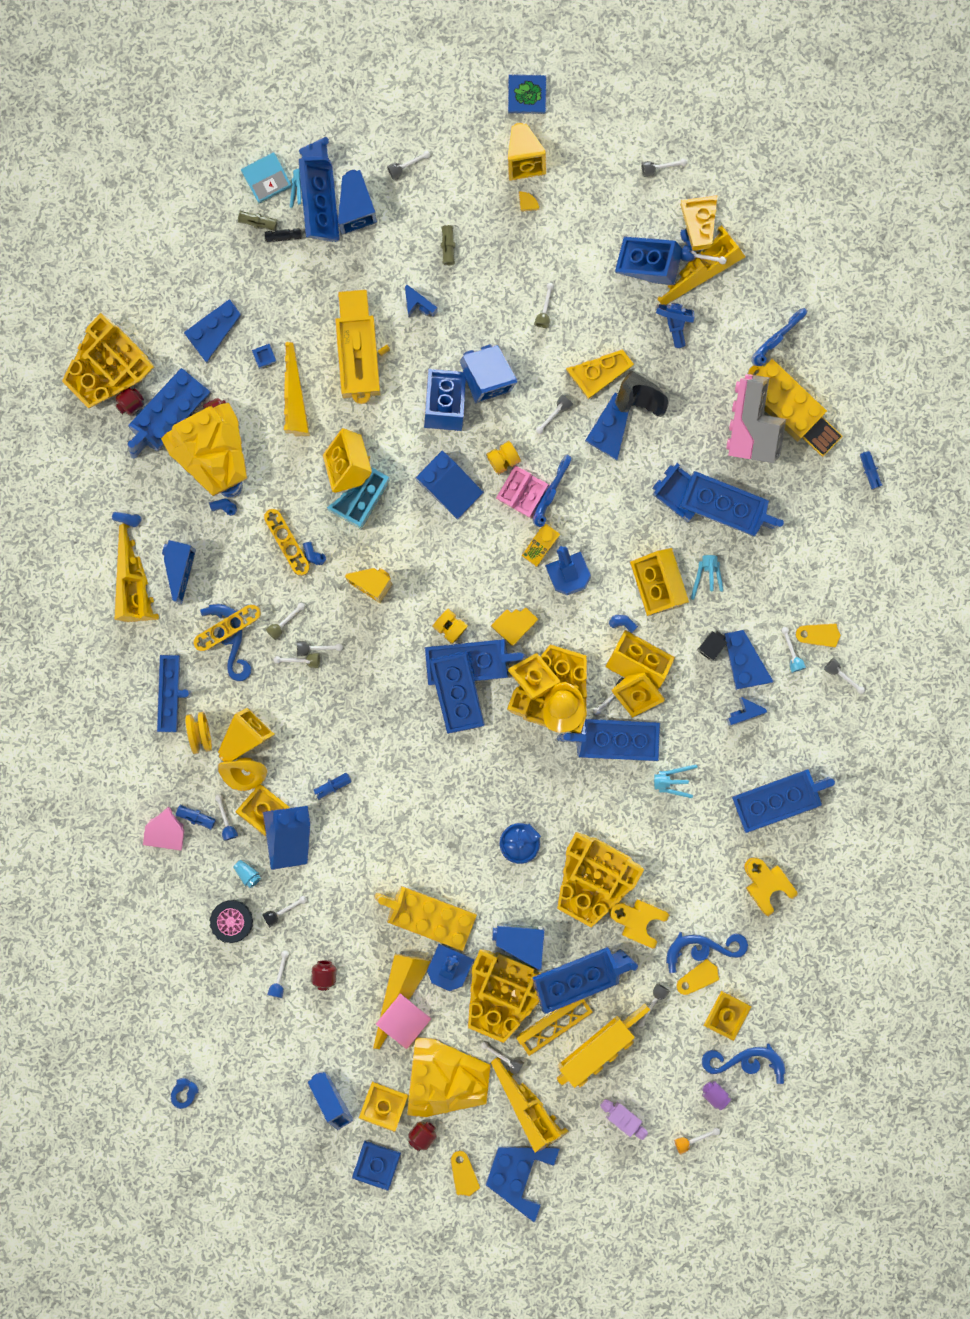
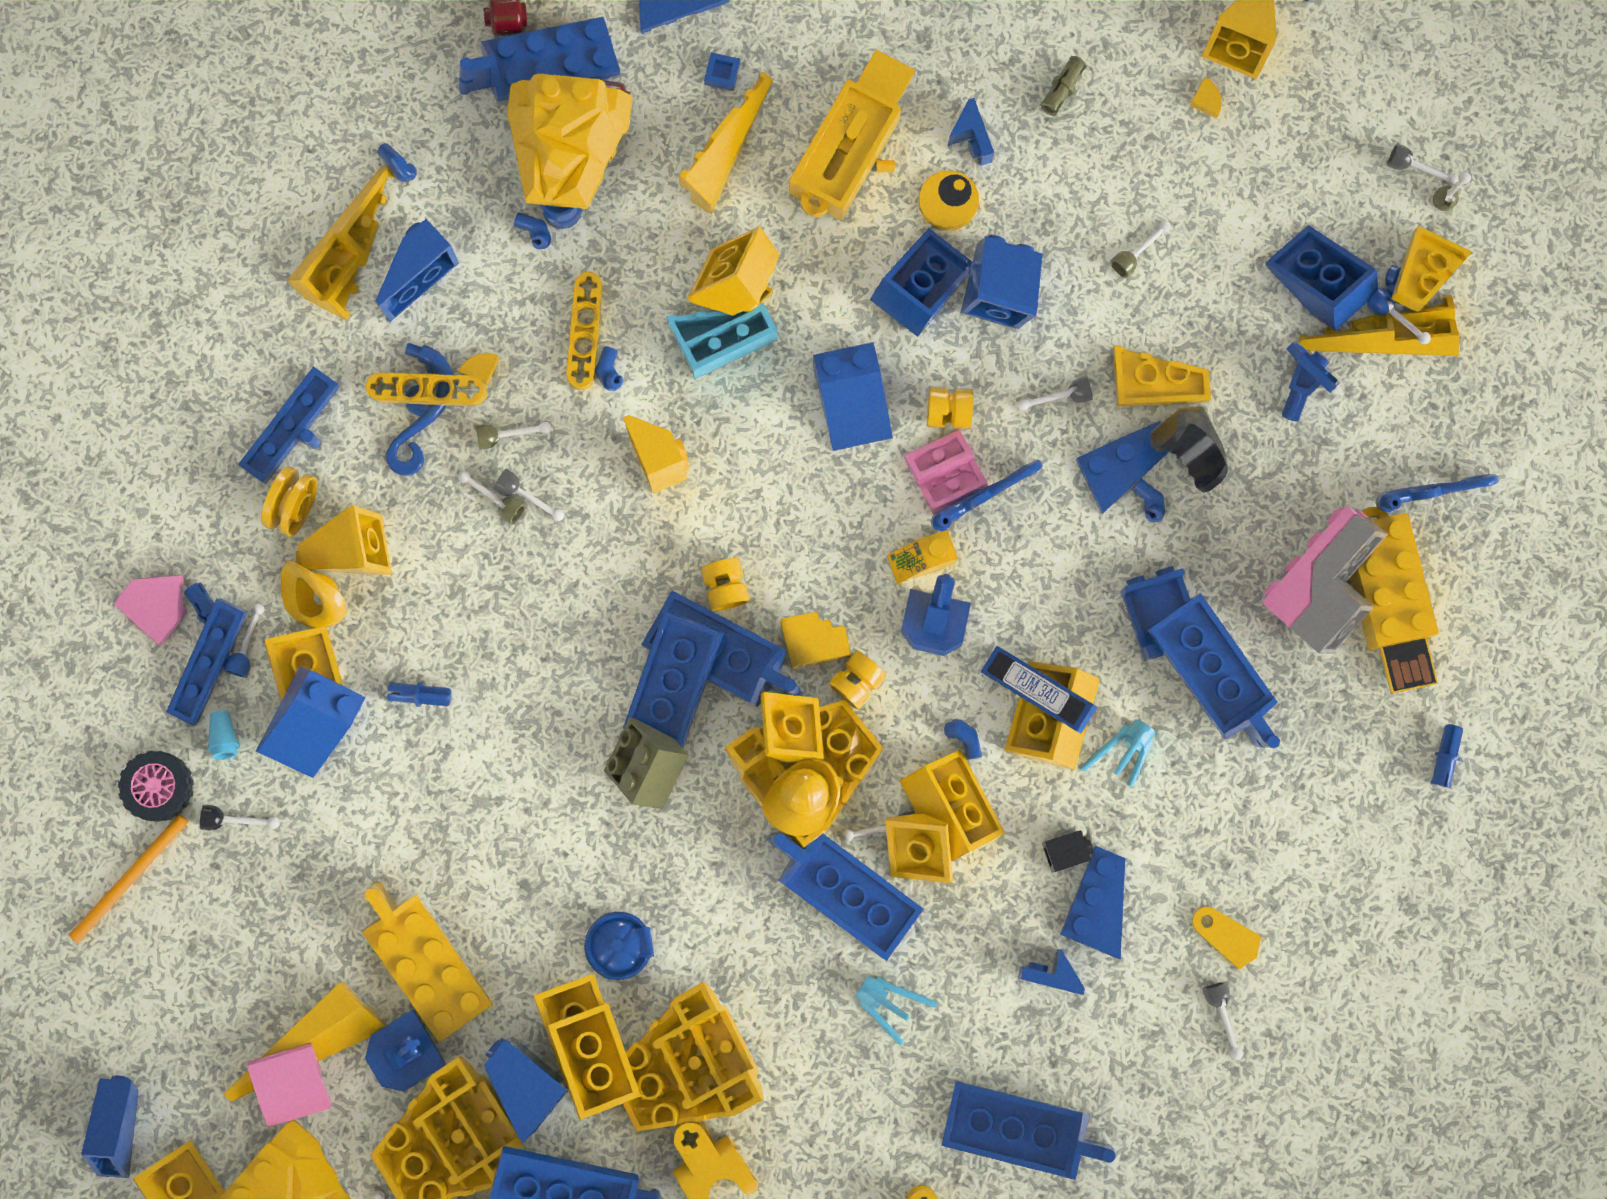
camera: 35 degrees right, 5 degrees down
(213, 842) = (206, 661): none -> blue tile
(245, 597) = (480, 366): none -> yellow tile
(249, 976) = (128, 878): none -> light orange piece
(276, 989) = (151, 922): hinge -> none
(323, 975) = (227, 945): dark red head -> none
(429, 347) = (948, 200): none -> yellow tile
(472, 744) = (645, 764): none -> olive slope
(538, 902) = (587, 1046): none -> yellow slope
(549, 622) = (863, 670): none -> yellow wheel
(639, 437) = (1153, 501): none -> blue arm
(645, 574) = (1039, 689): none -> tile
(686, 172) = (1449, 193): none -> hinge
(796, 663) = (1169, 954): hinge -> none

